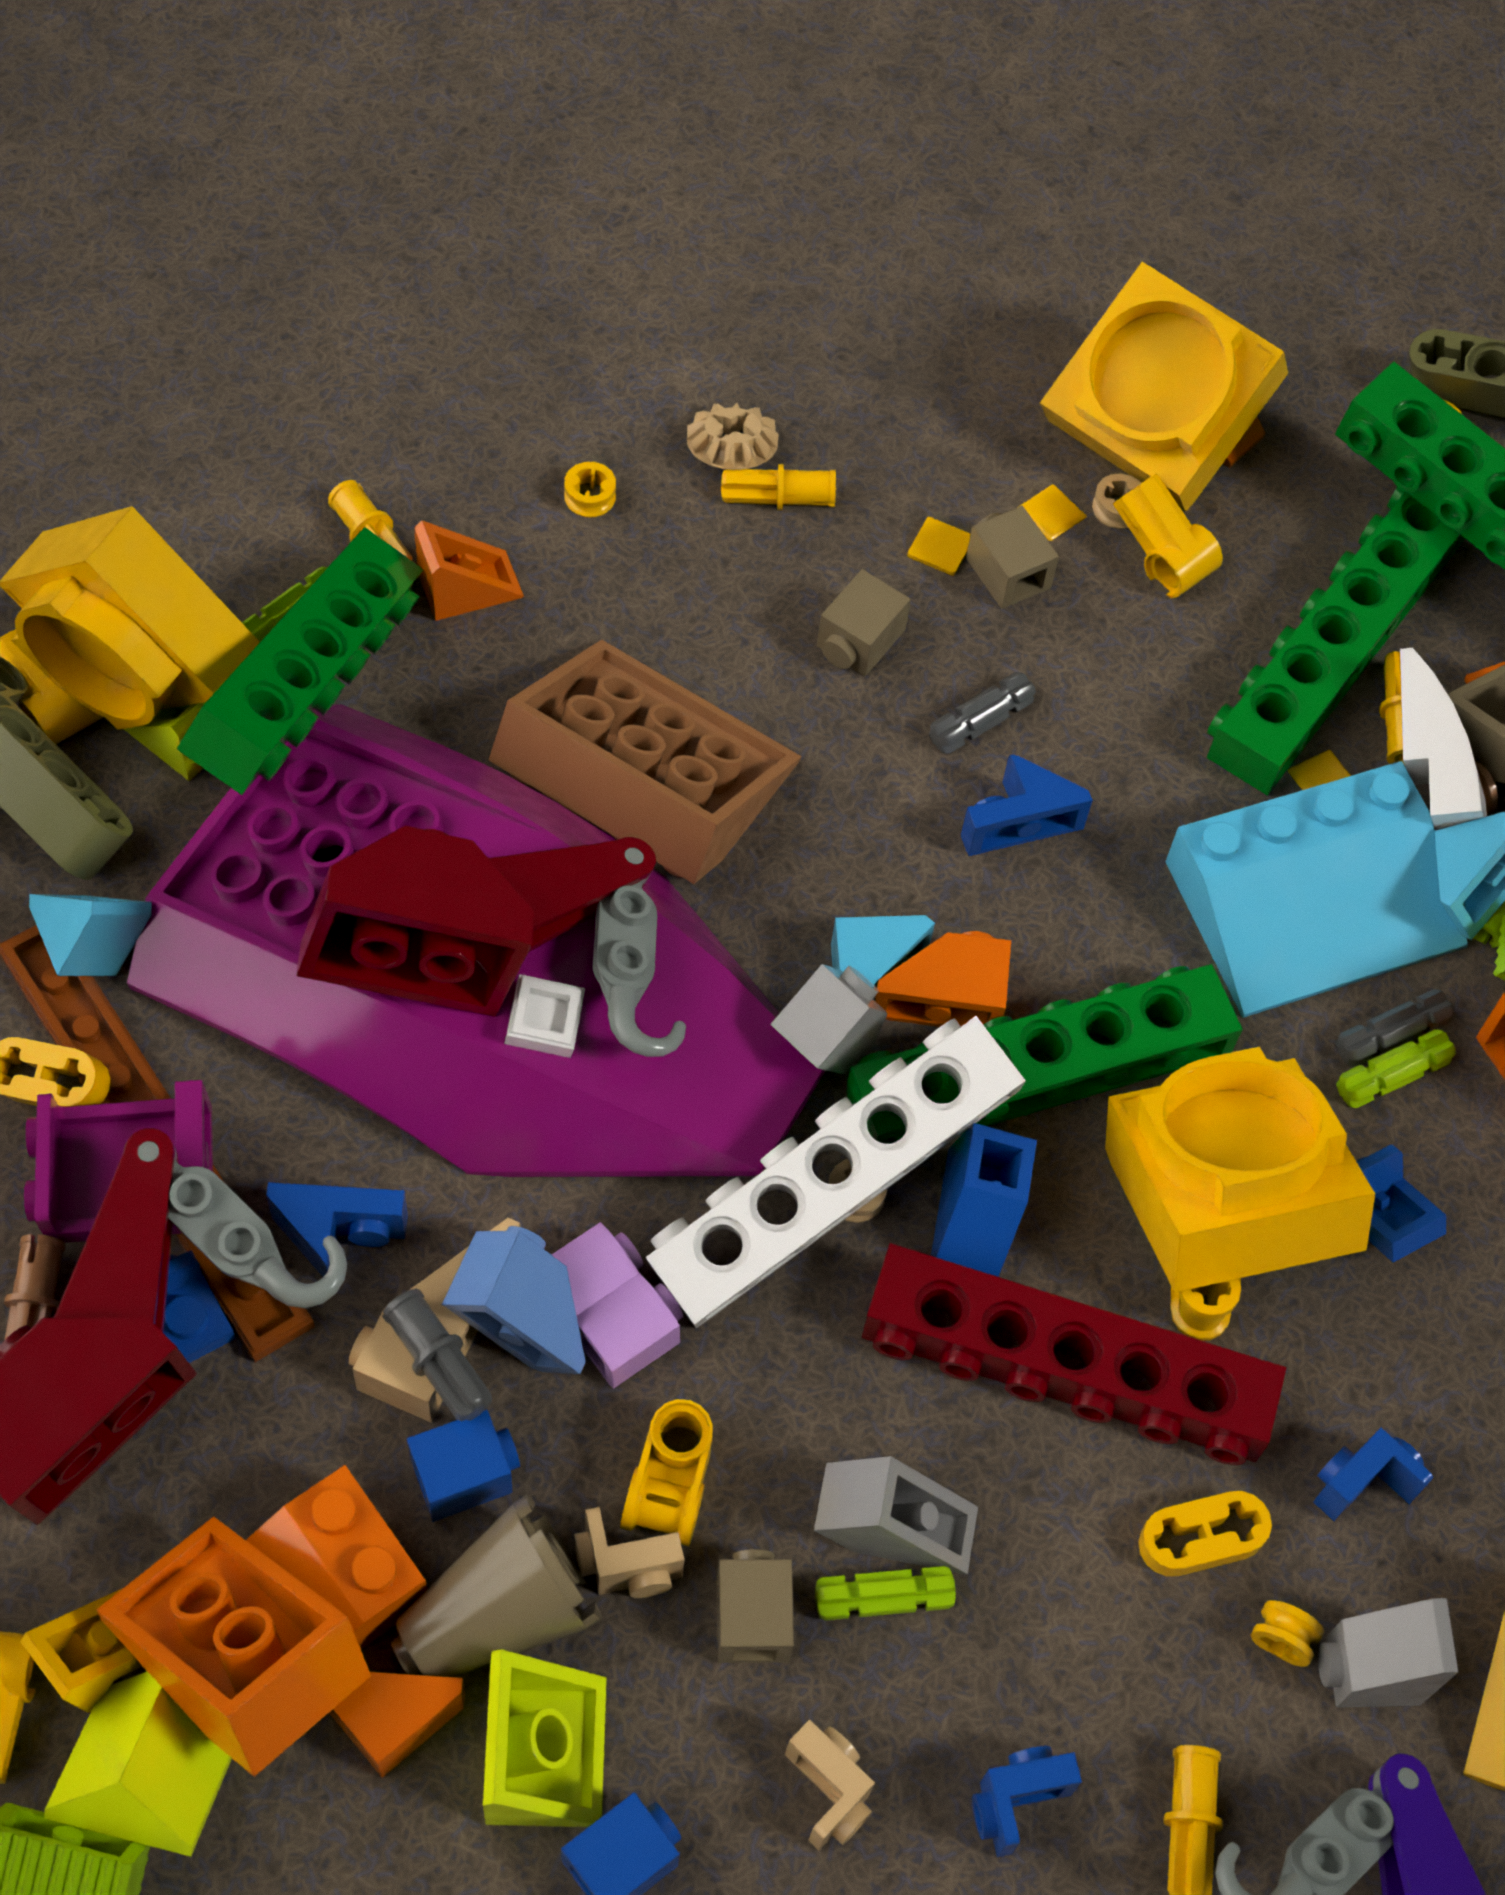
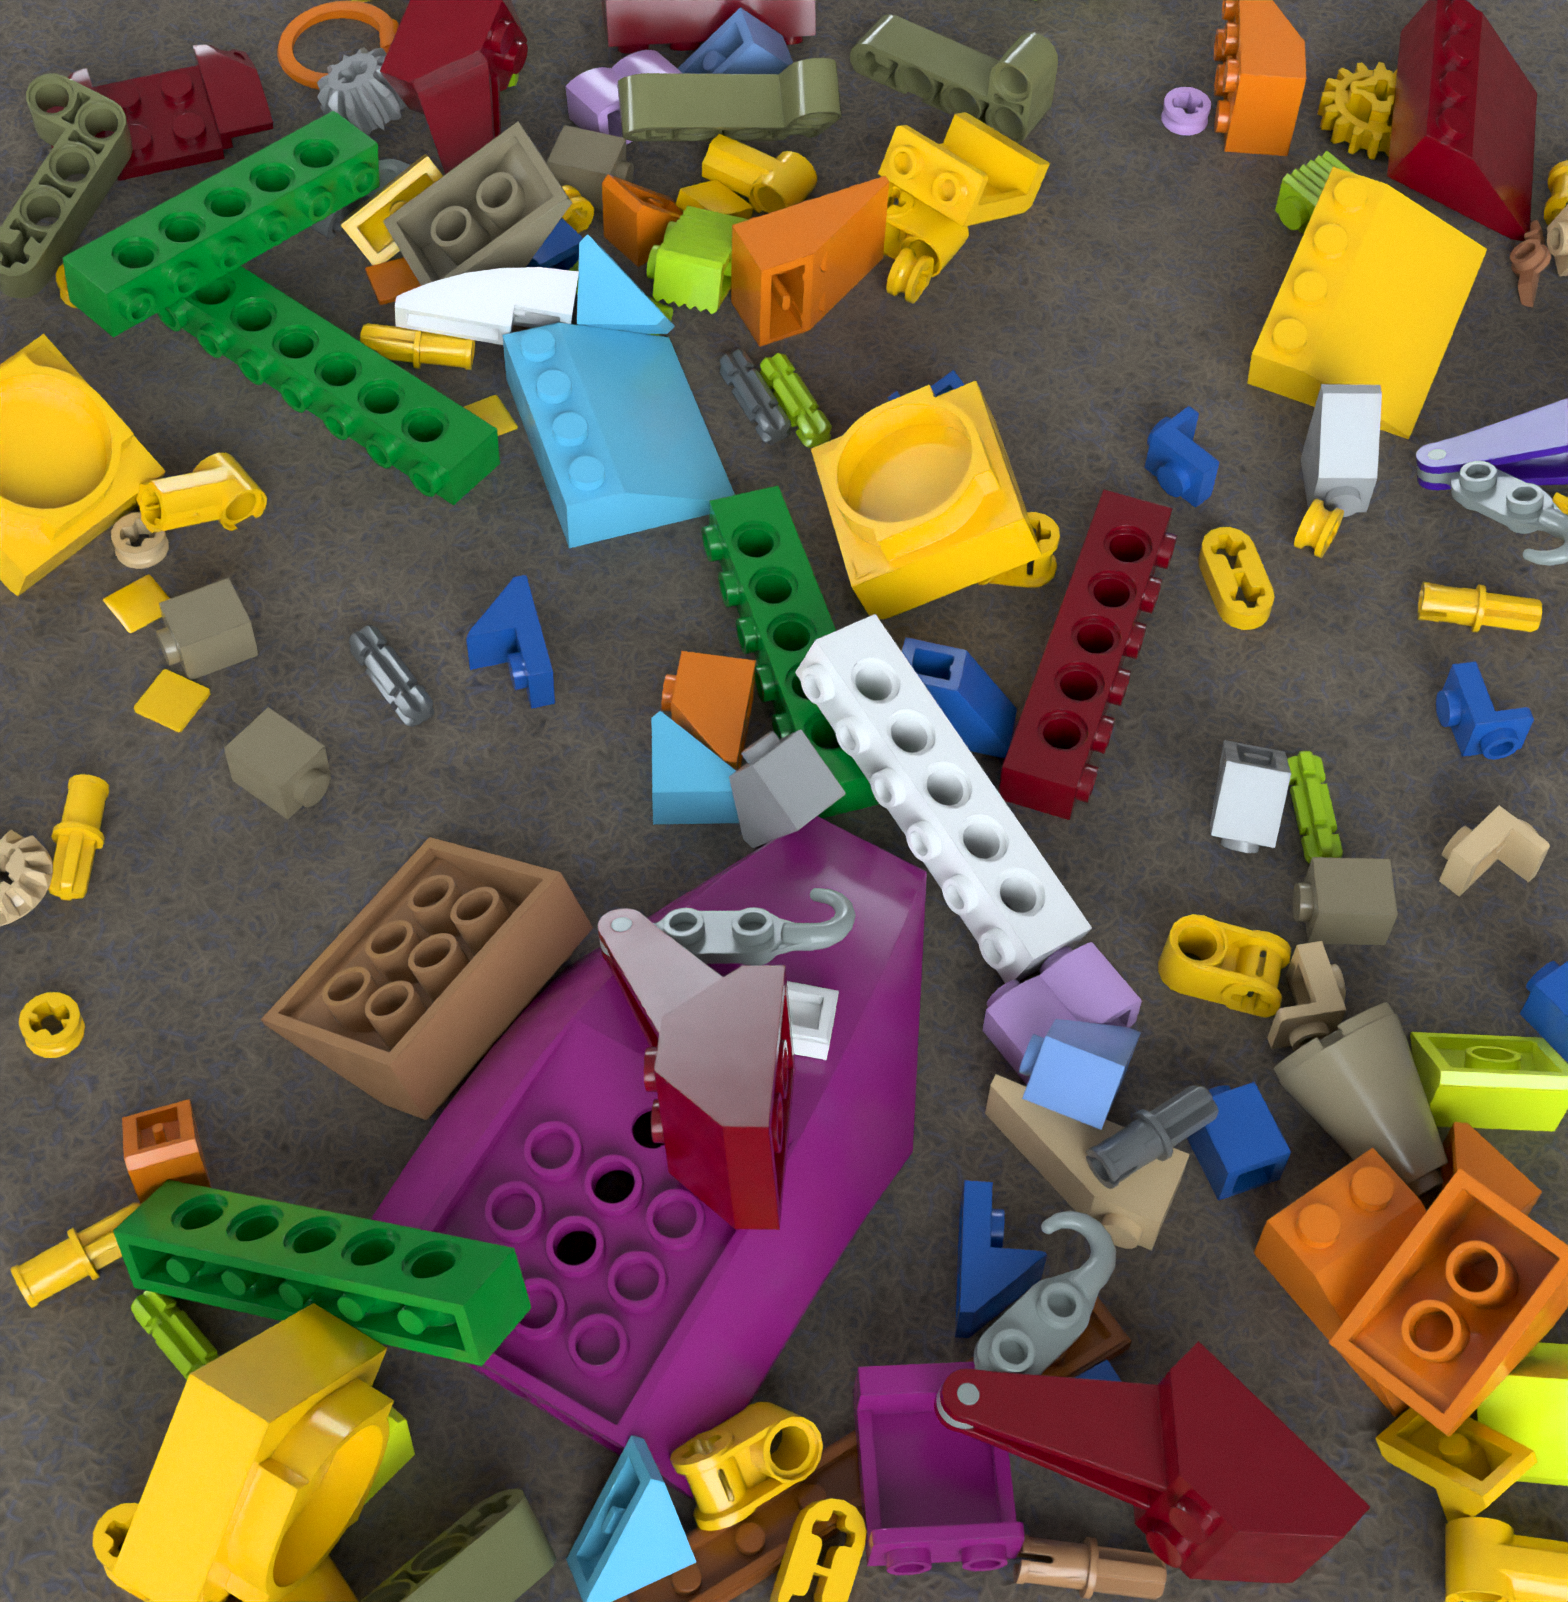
camera: 85 degrees left, 5 degrees down
(146, 1012) = (733, 1465): none -> yellow piece

